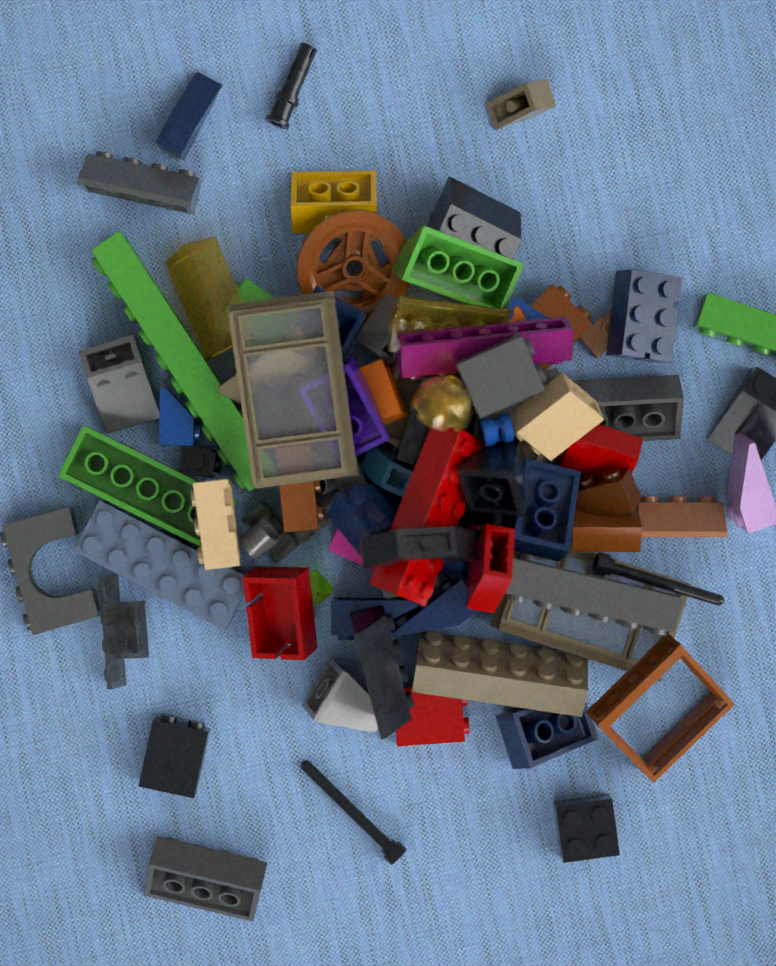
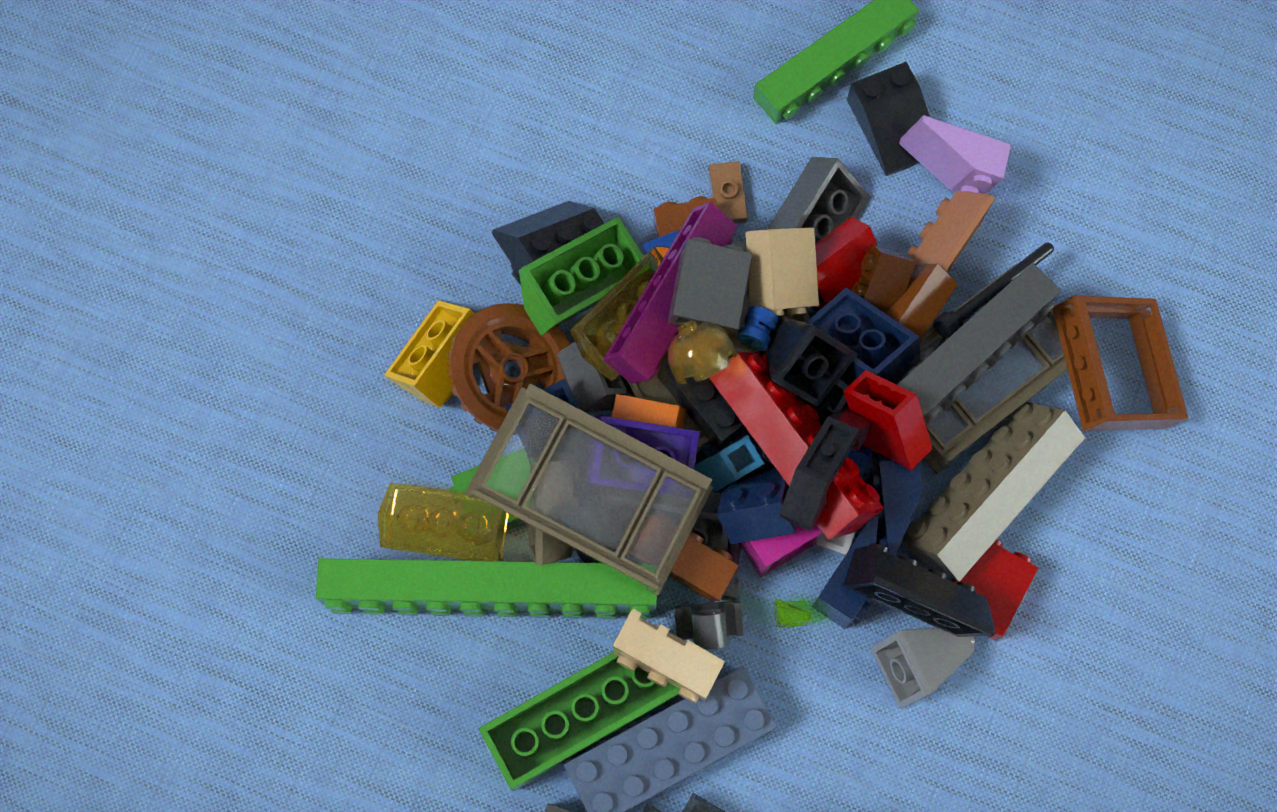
camera: 55 degrees left, 15 degrees down
(120, 383) = (464, 667): dark grey slope -> none
(140, 183) = (290, 518): dark grey slope -> none
(176, 422) = (539, 638): blue slope -> none
(188, 116) = (264, 433): dark blue slope -> none
(200, 462) = (594, 641): black bracket -> none
(281, 614) = (796, 660): red piece -> none
(287, 98) = (314, 332): black pin -> none
(391, 850) = (1104, 714): black piece -> none
(521, 104) = (472, 136): dark tan slope -> none
(540, 736) = (1075, 495): dark blue slope -> none
(586, 828) = (1195, 511): black brick -> none
(643, 316) = (738, 151): piece -> none

